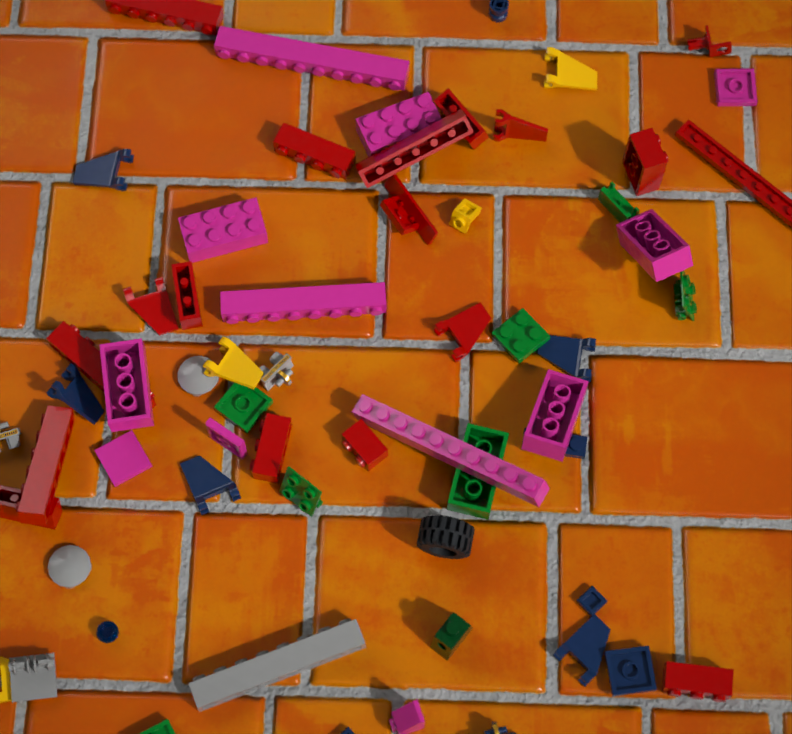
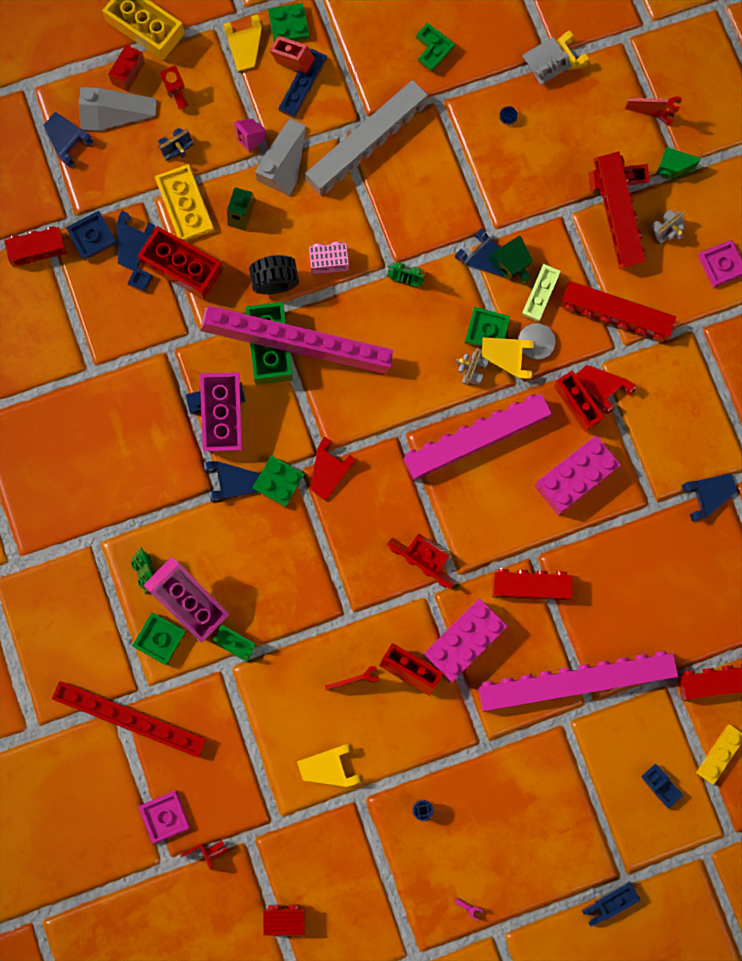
camera: 155 degrees right, 10 degrees up
(69, 566) = (562, 152): light grey dish -> none
(77, 395) = (624, 281): dark blue flag -> none
(123, 458) = (563, 250): dark pink tile -> none
(126, 385) = (587, 293): dark pink brick -> none
(170, 421) = (541, 293): none -> yellowish green plate
(182, 464) = (512, 260): none -> dark green torso
(226, 438) = (486, 289): dark pink tile -> none
(271, 448) = (447, 301): red brick -> none
(364, 445) = (371, 331): red brick -> none
(377, 542) = (329, 258): none -> bright pink brick
(383, 675) = (282, 160): none -> light grey wedge
(414, 148) = (439, 614): red brick -> none
(464, 215) = (370, 576): yellow bracket -> none
(512, 671) = (184, 203): none -> yellow tile
(541, 595) = (180, 262): none -> red brick
(644, 161) = (221, 683): red brick -> none
(695, 231) = (159, 638): none -> green plate

